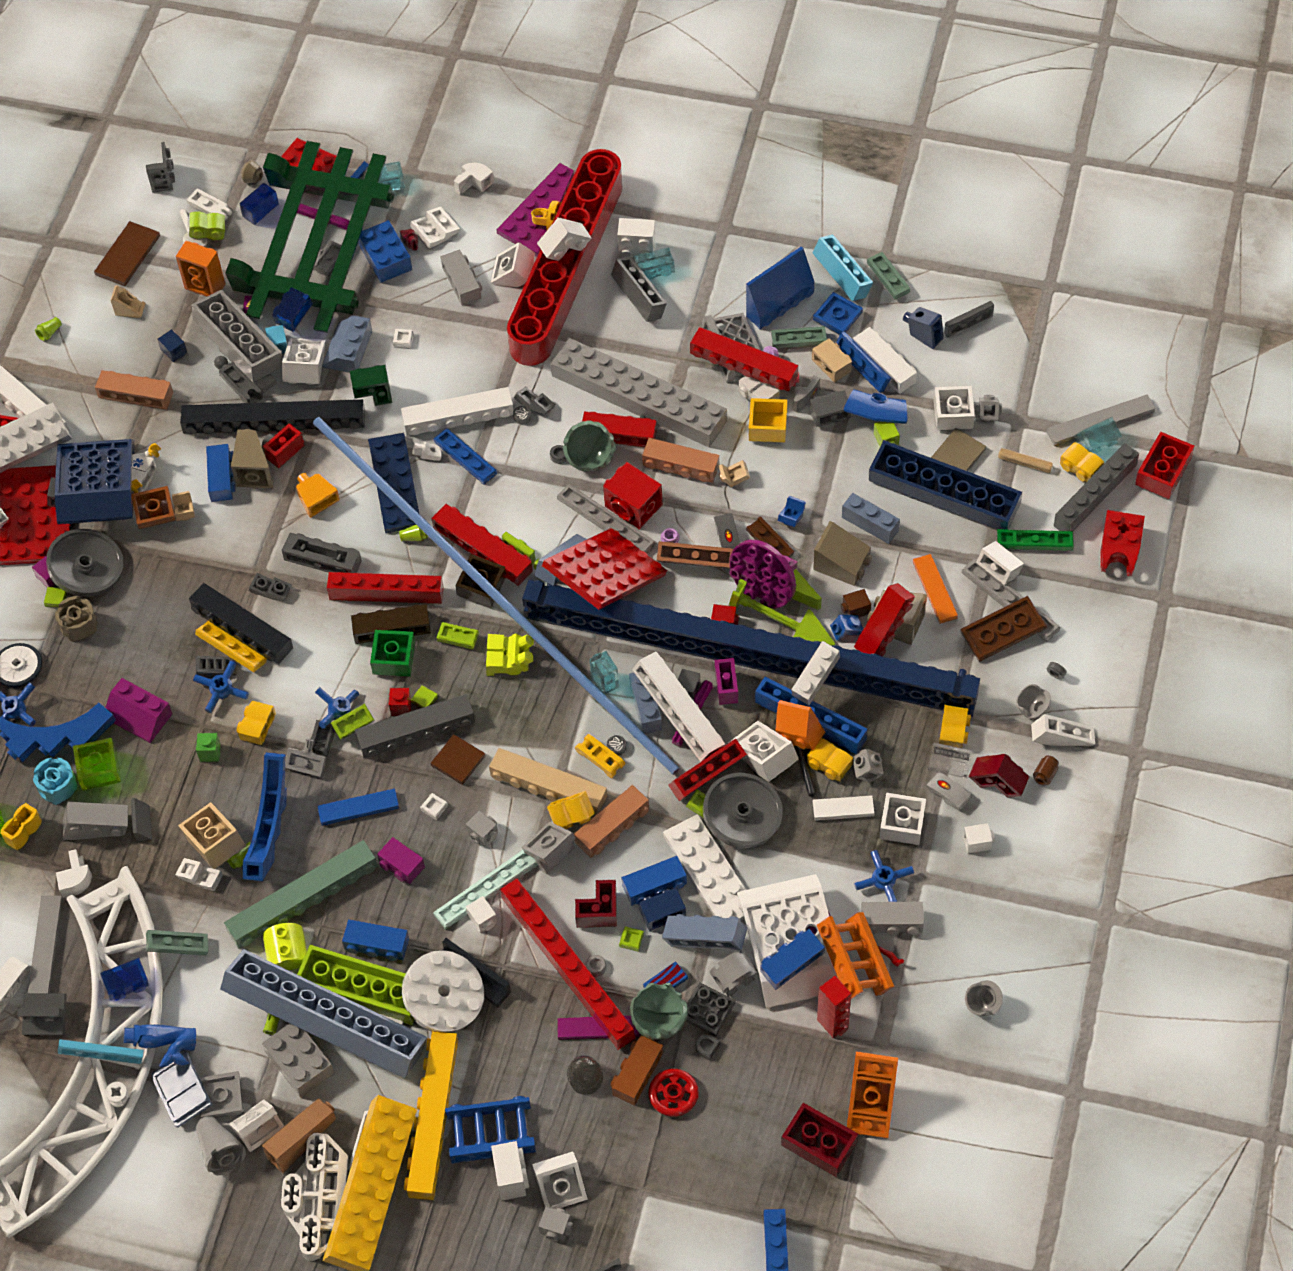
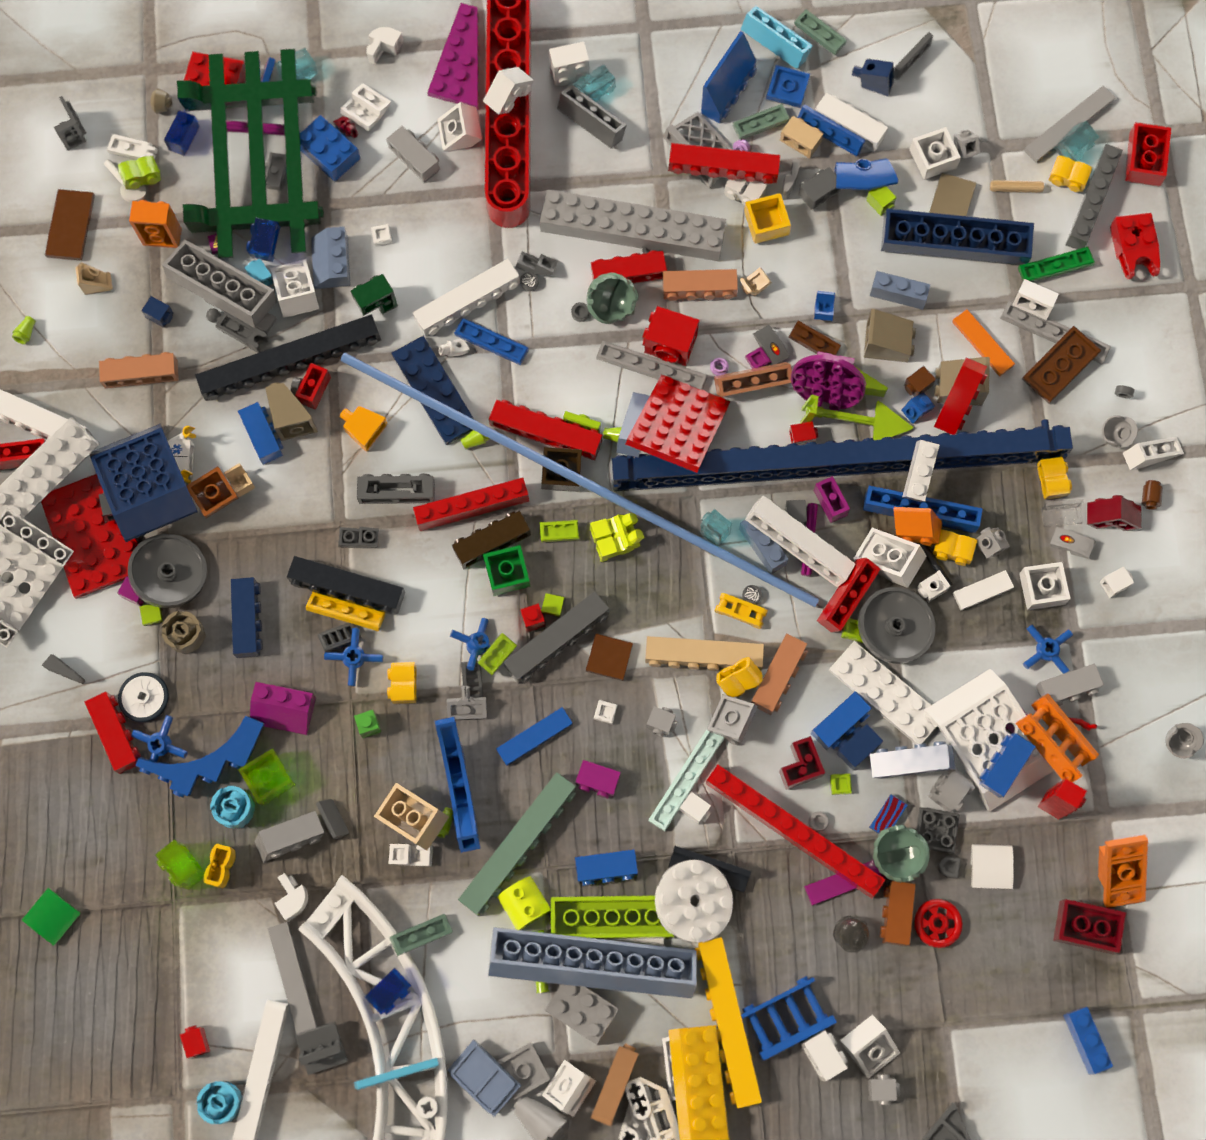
camera: 20 degrees left, 15 degrees up
(138, 624) = (246, 617): none -> dark blue brick
(158, 1035) = (442, 1036): blue piece -> none
(548, 214) = (476, 64): yellow tile -> none
(710, 539) = (758, 358): none -> magenta tile
(747, 1057) = (992, 866): none -> white slope
(794, 789) = (939, 582): none -> white brick

